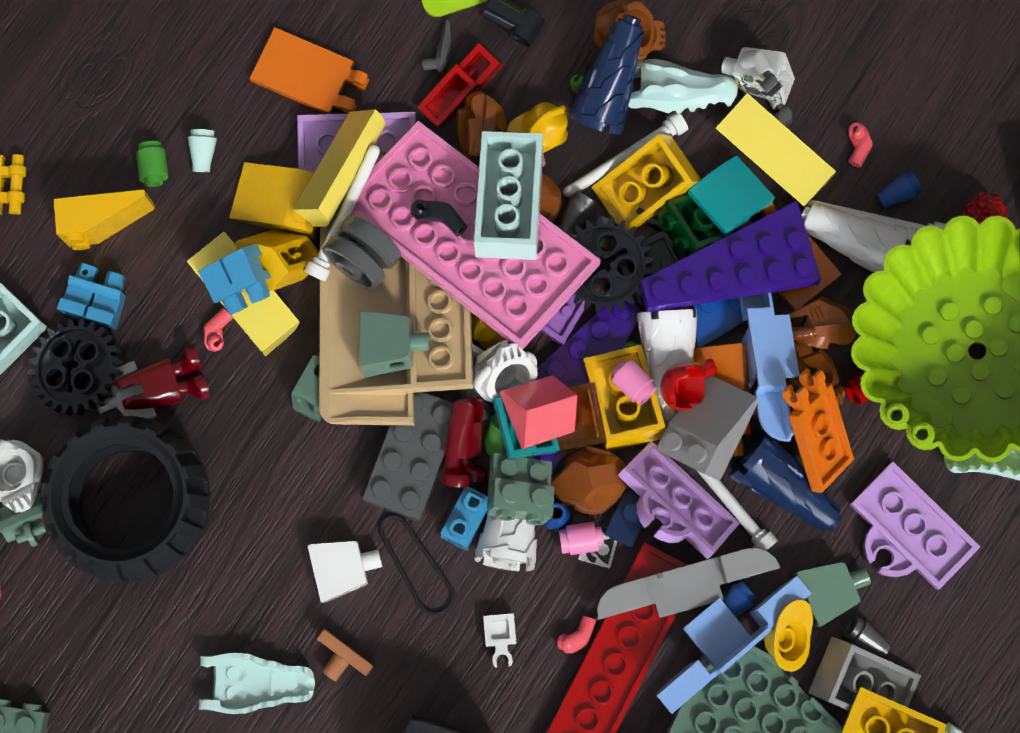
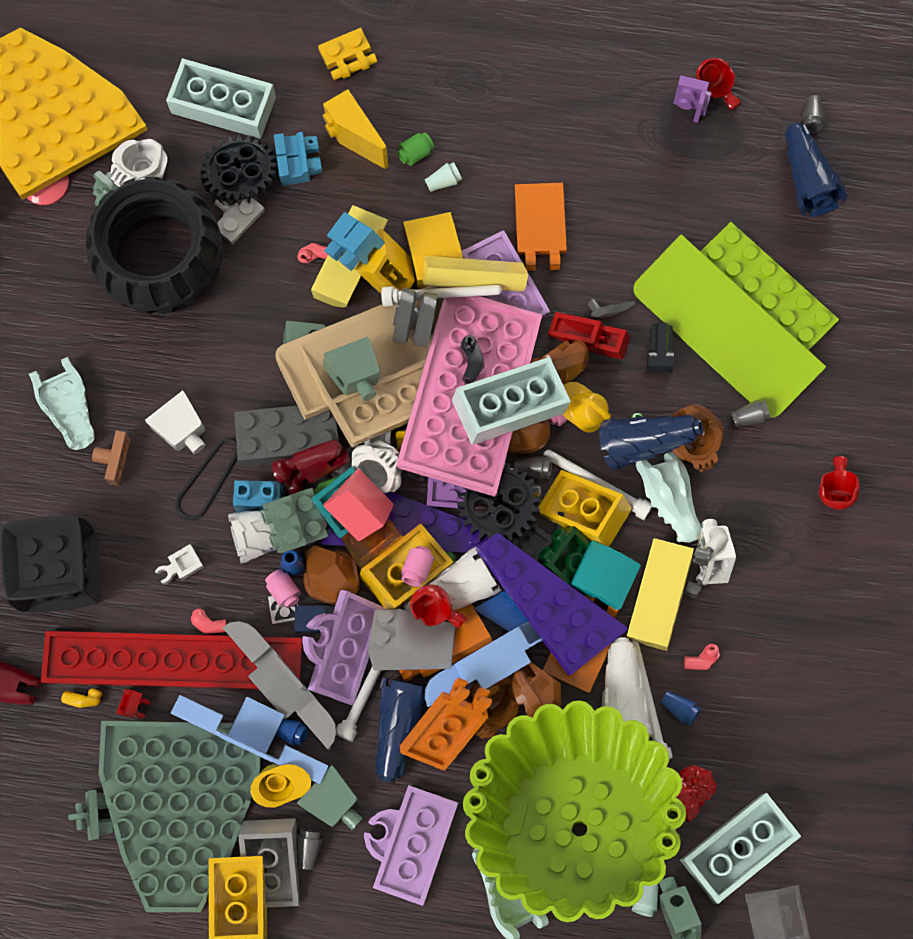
camera: 70 degrees right, 5 degrees down
(160, 382) = (254, 229): dark red piece -> none

